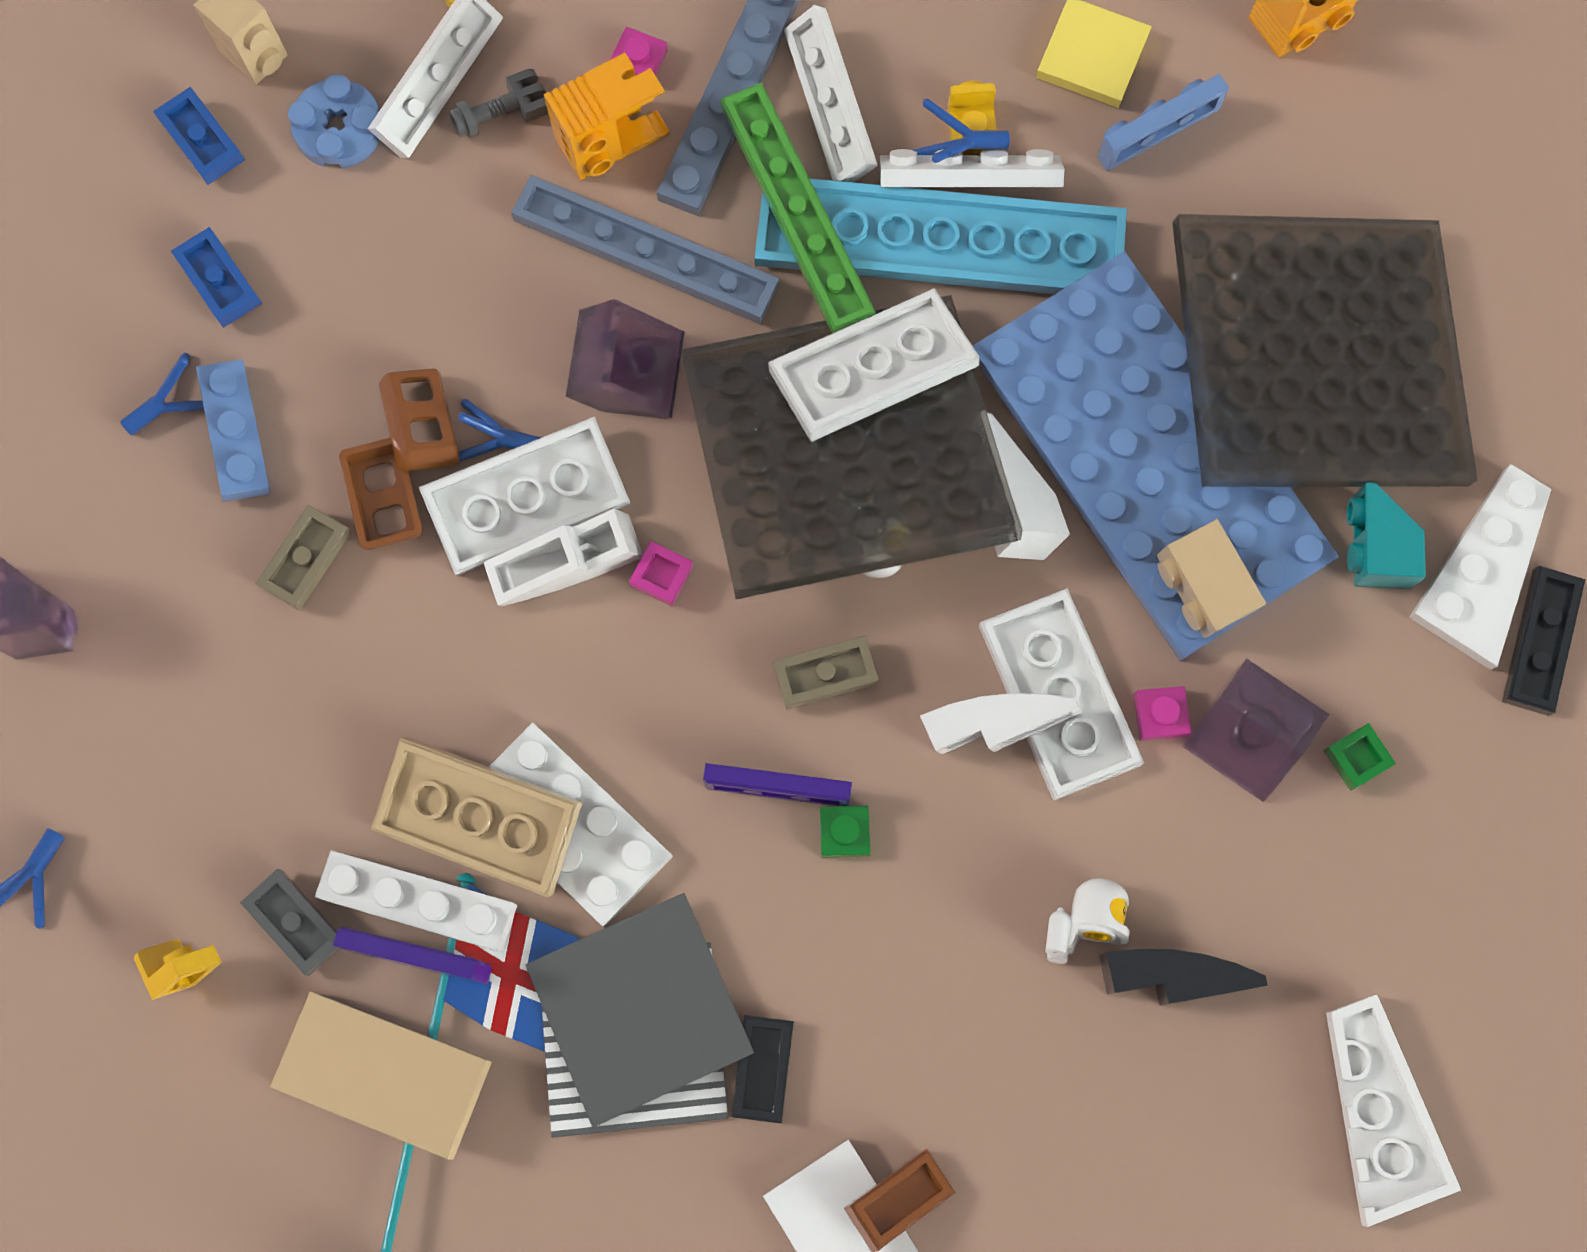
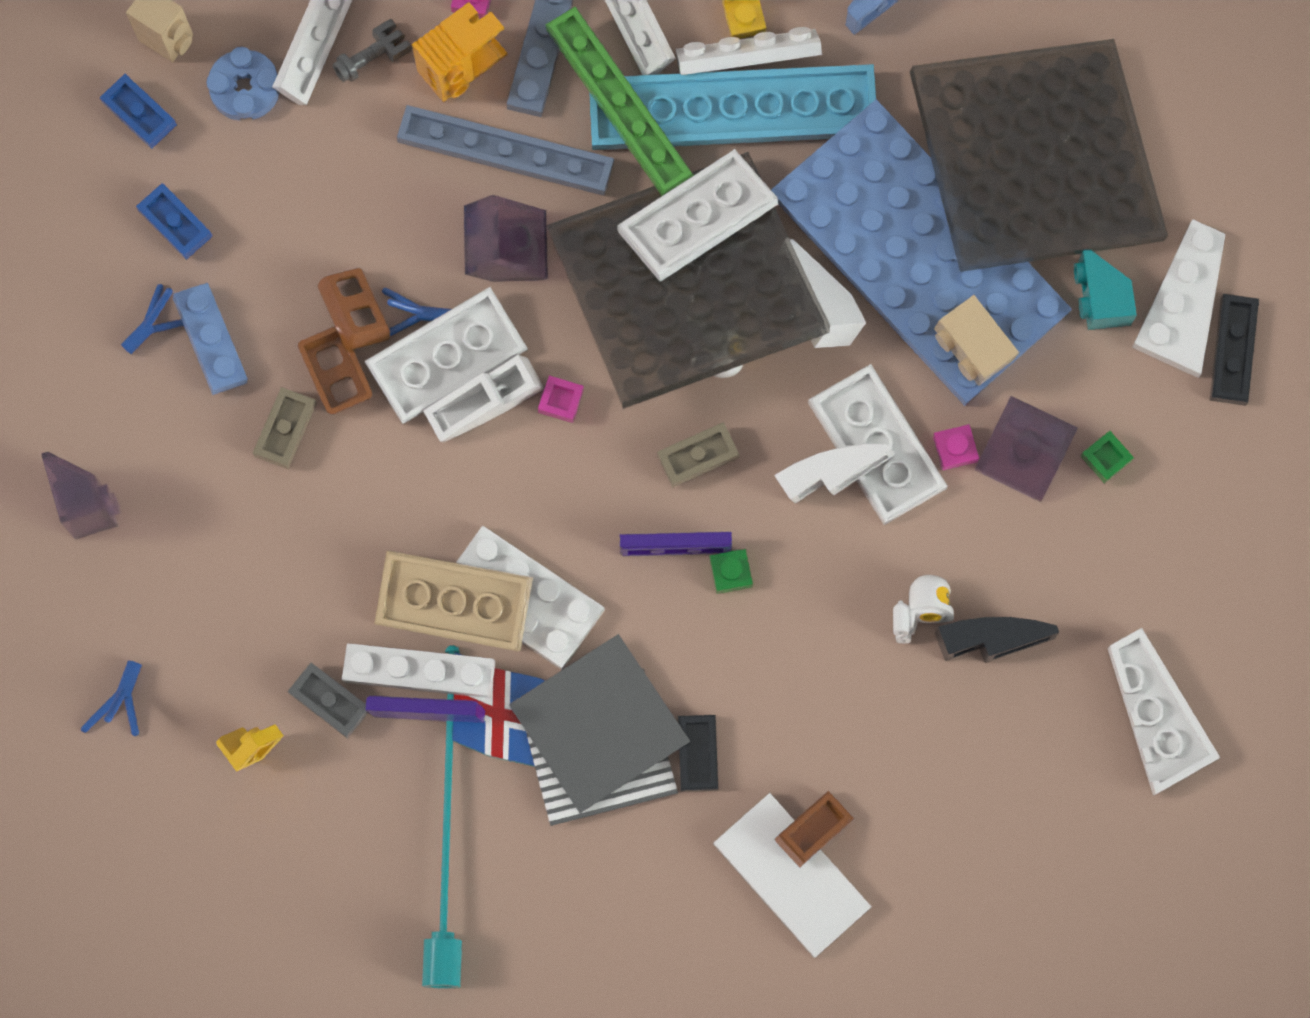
camera: 10 degrees left, 0 degrees up
(381, 1075) = (416, 799): tan tile -> none
(970, 138) = (744, 27): blue plant -> none

